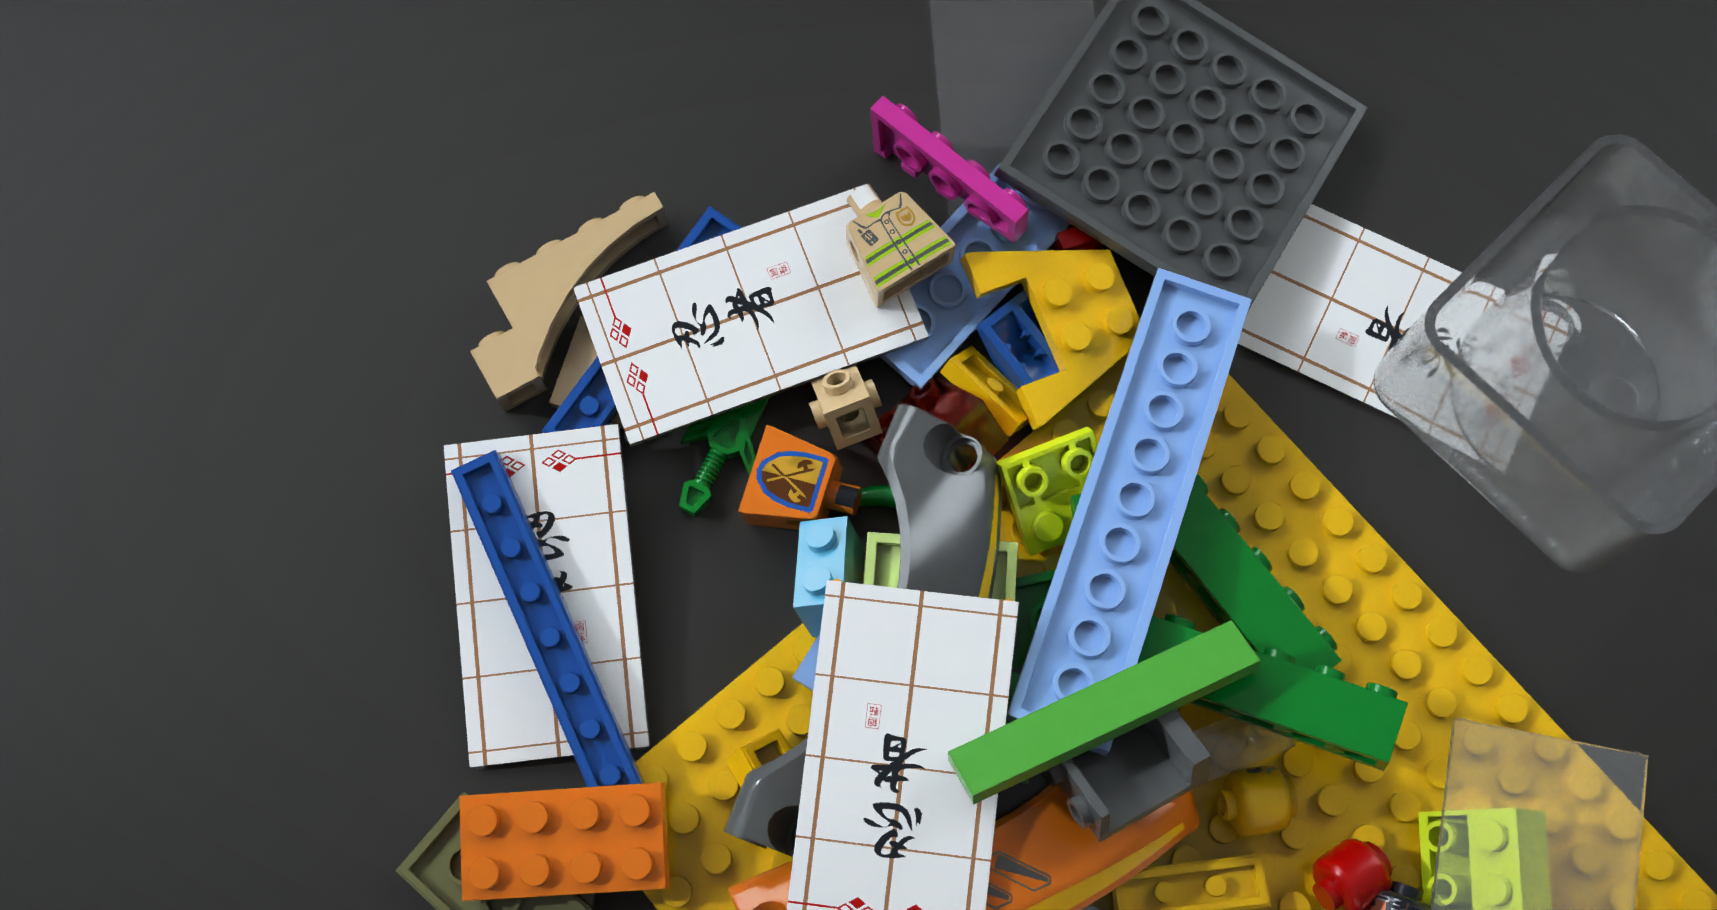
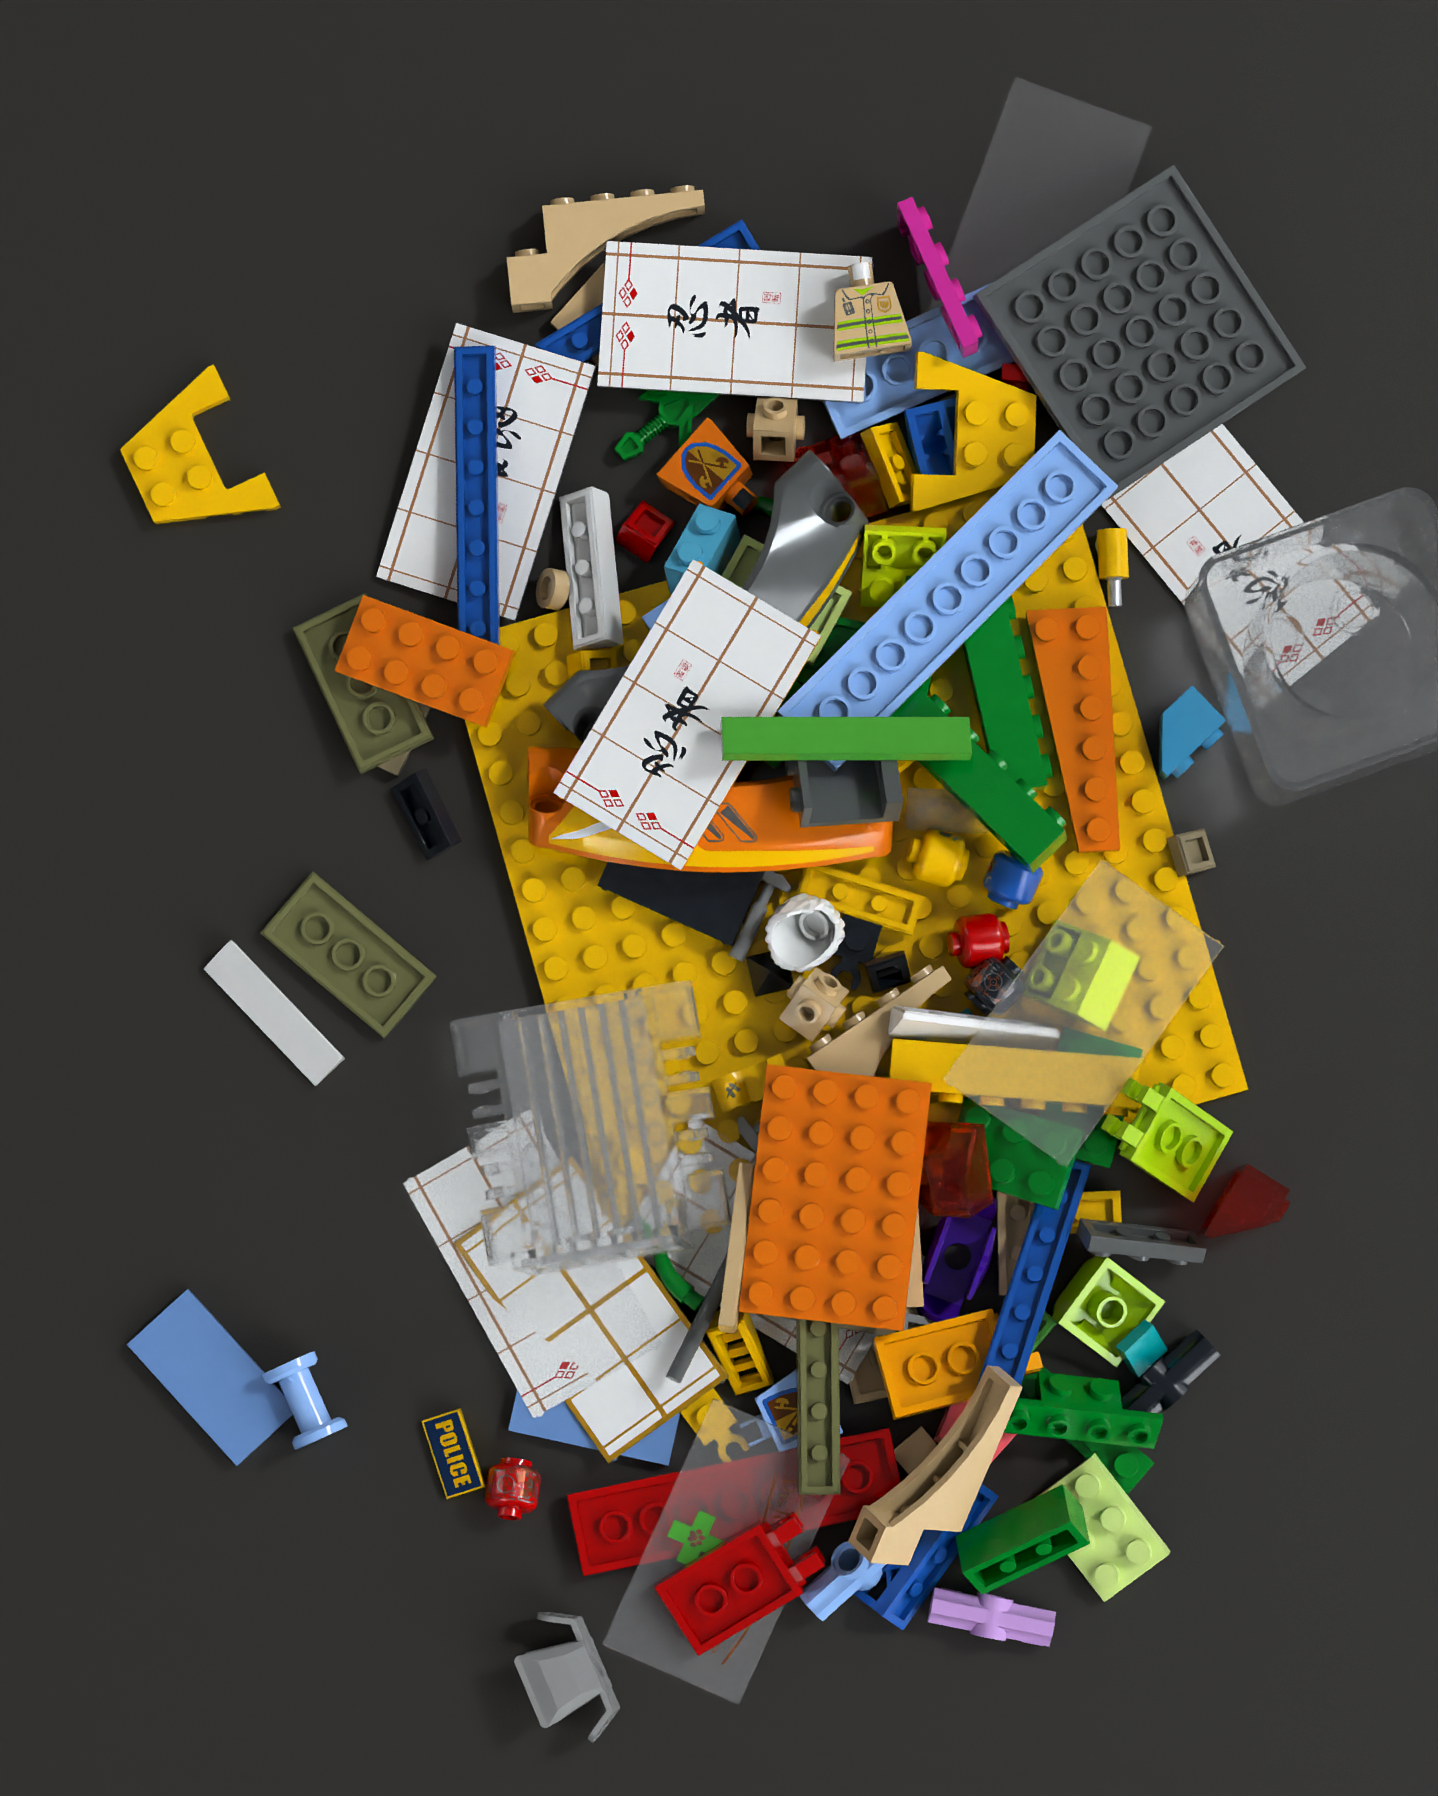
camera: 25 degrees right, 10 degrees up
(188, 745) = (176, 468): none -> yellow wing
(679, 690) = (552, 589): none -> tan tile
(711, 651) = (591, 569): none -> white slope
(752, 582) = (644, 531): none -> red slope
(1272, 390) = (1112, 561): none -> yellow piece
(1313, 544) = (1076, 688): none -> orange wing
(1351, 790) = (1010, 880): none -> blue head
(1443, 535) = (1183, 729): none -> dark azure slope
(1521, 665) = (1191, 852): none -> dark tan tile

